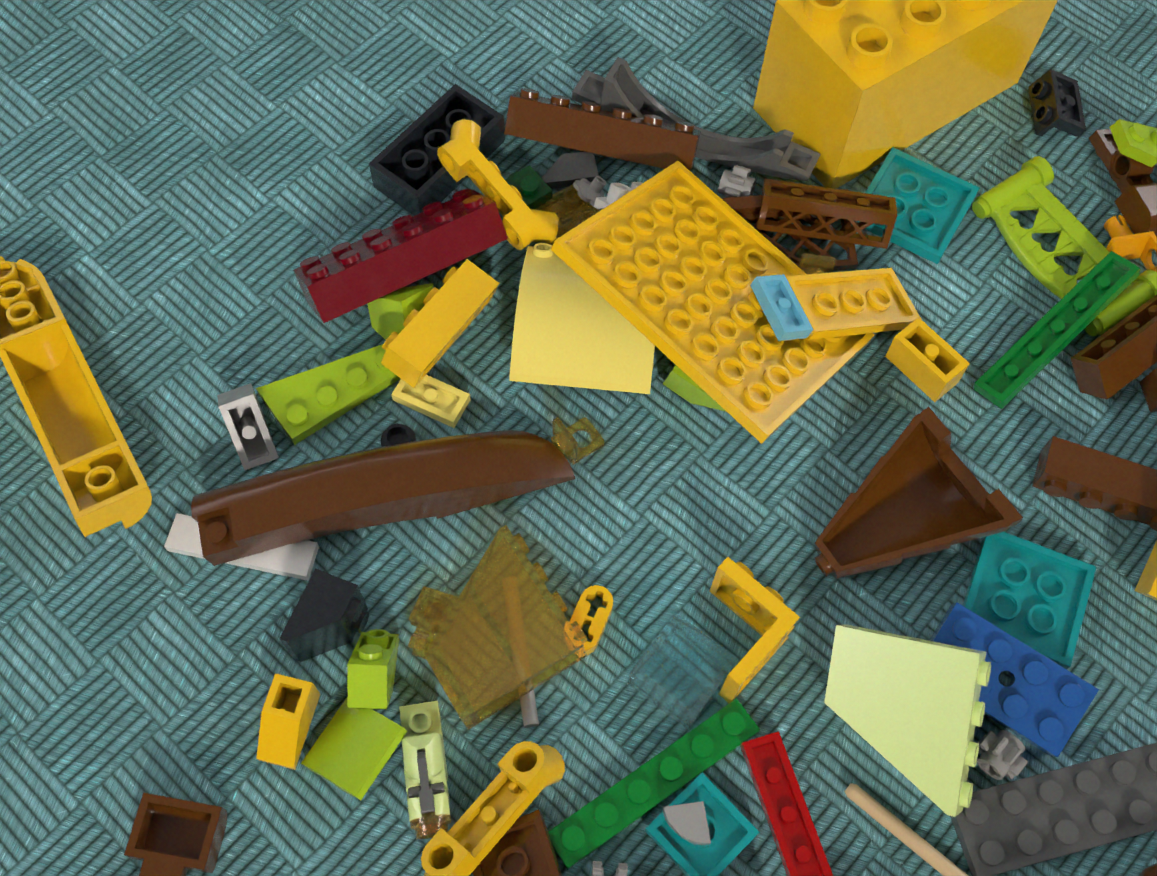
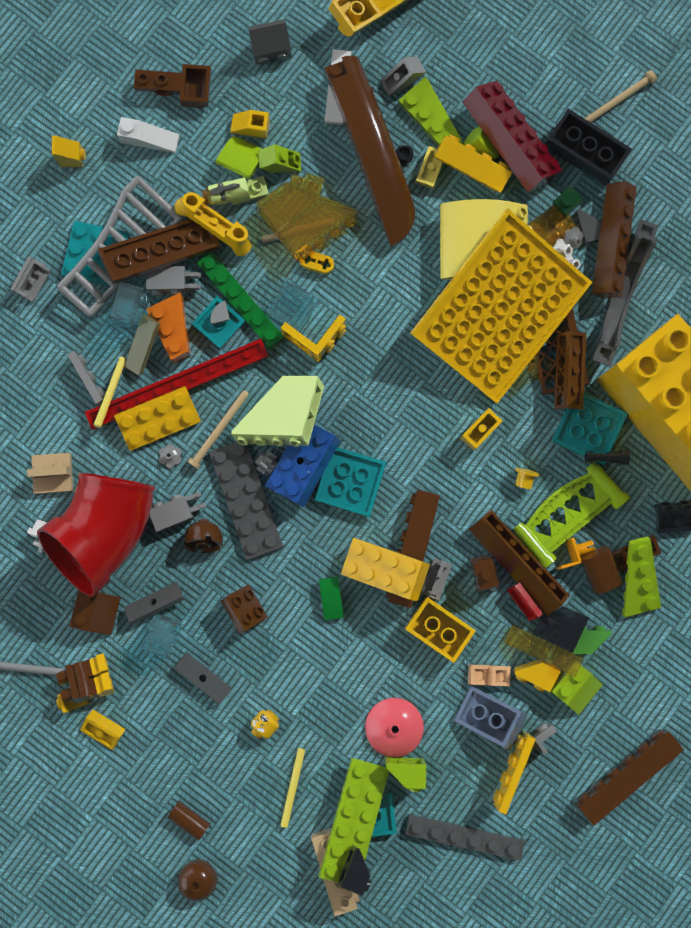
camera: 85 degrees right, 20 degrees up
(122, 662) = (270, 42): none -> dark grey slope
(324, 617) = (301, 131): black slope -> none
(332, 62) = (650, 78): none -> tan bar
(463, 158) = (574, 158): yellow plate -> none
(566, 443) = (411, 240): clear yellow bracket -> none
(737, 182) = (587, 322): light grey gear -> none
(781, 307) = (495, 342): medium azure plate -> none
(853, 302) = (511, 386): yellow plate -> none
(911, 506) = (392, 419): reddish brown cone -> none
(969, 160) = (621, 457): none -> black piece
(1006, 303) = (525, 478): none -> yellow piece
(1056, 329) = (510, 503): green plate -> none

